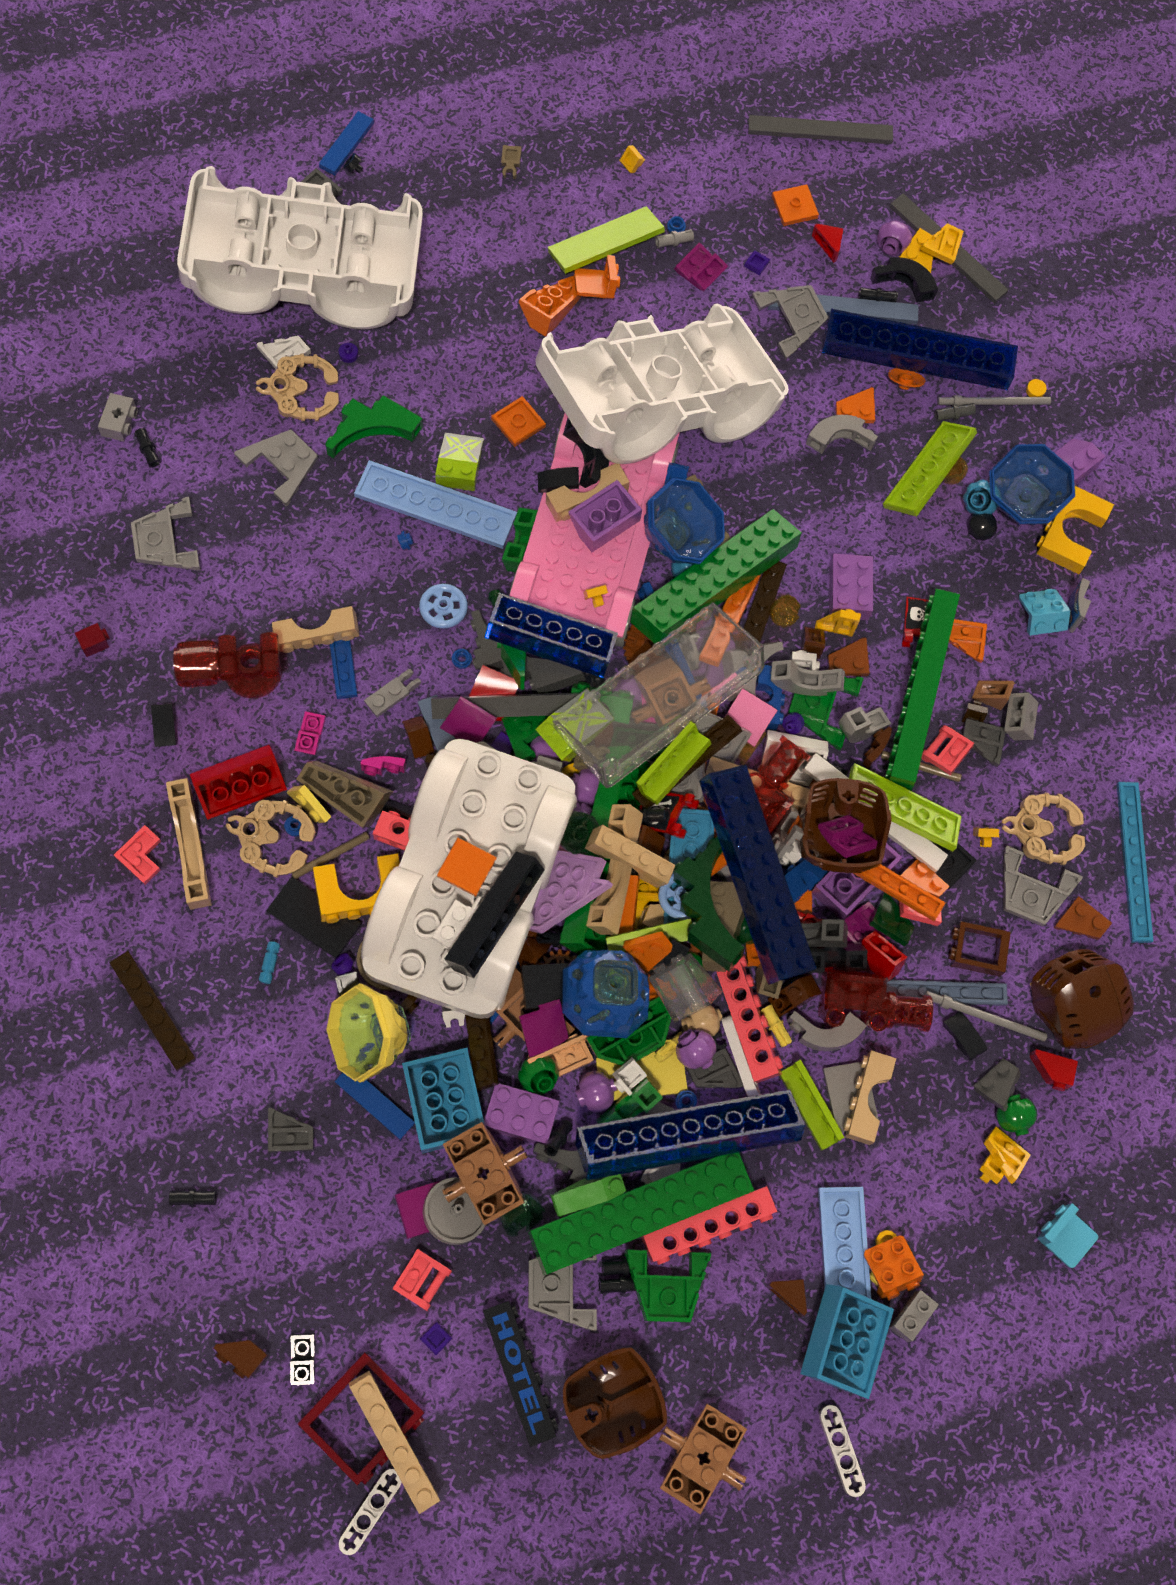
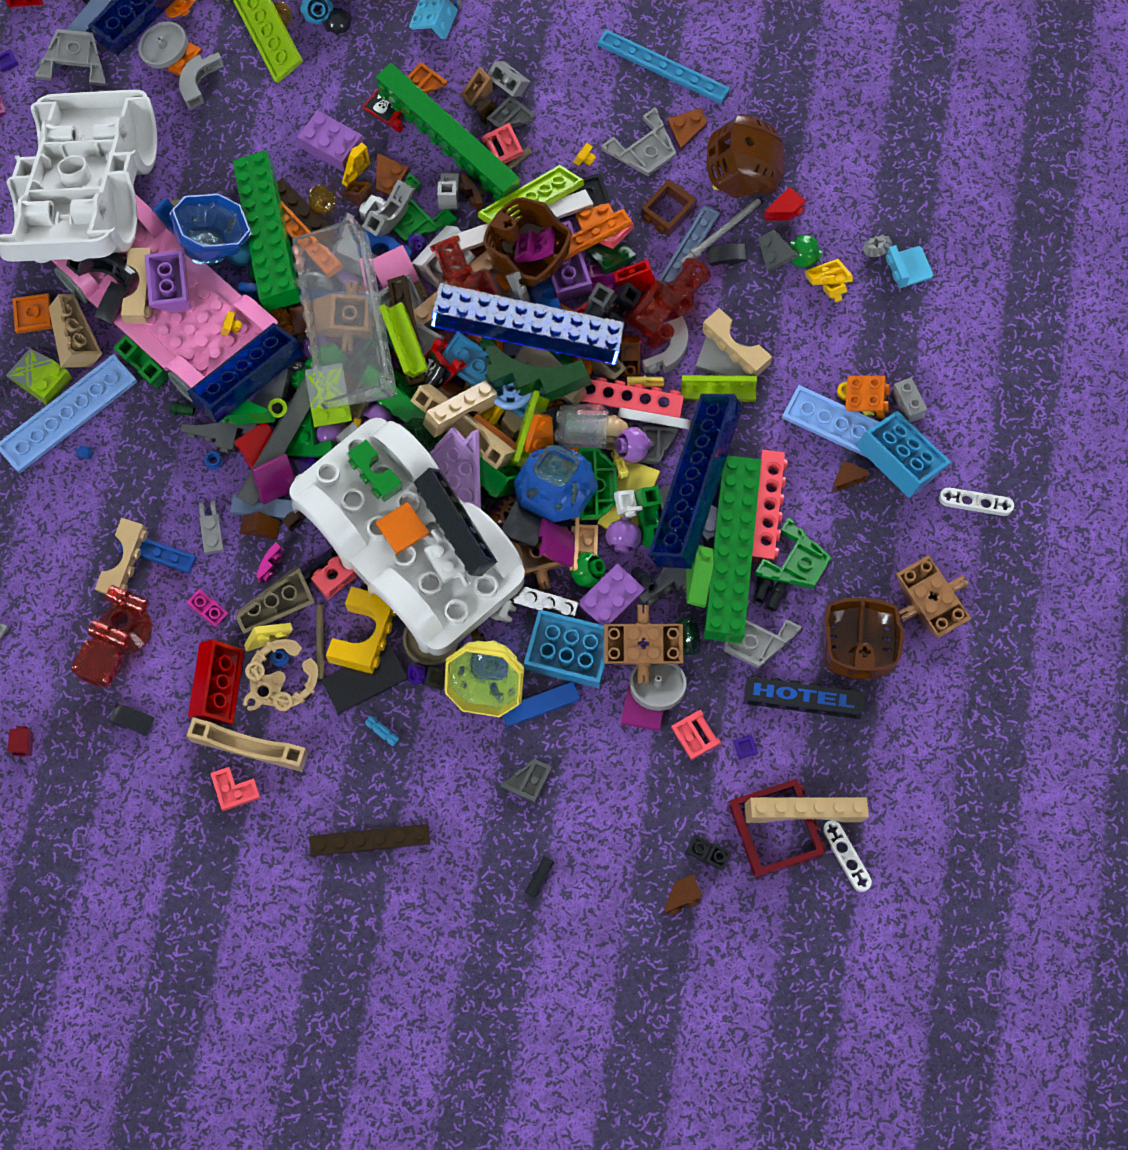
camera: 50 degrees left, 0 degrees up
(456, 596) = (170, 462): light blue plate -> none
(514, 466) = (72, 333): none -> tan wedge
(515, 791) = (383, 484): none -> green arch
(530, 679) = (280, 402): none -> lime piece
(685, 1093) = (669, 472): blue plate -> none
(856, 385) = (163, 45): none -> light grey piece
(1037, 827) = (597, 121): tan piece -> none
(1074, 1196) = (883, 246): none -> light grey gear

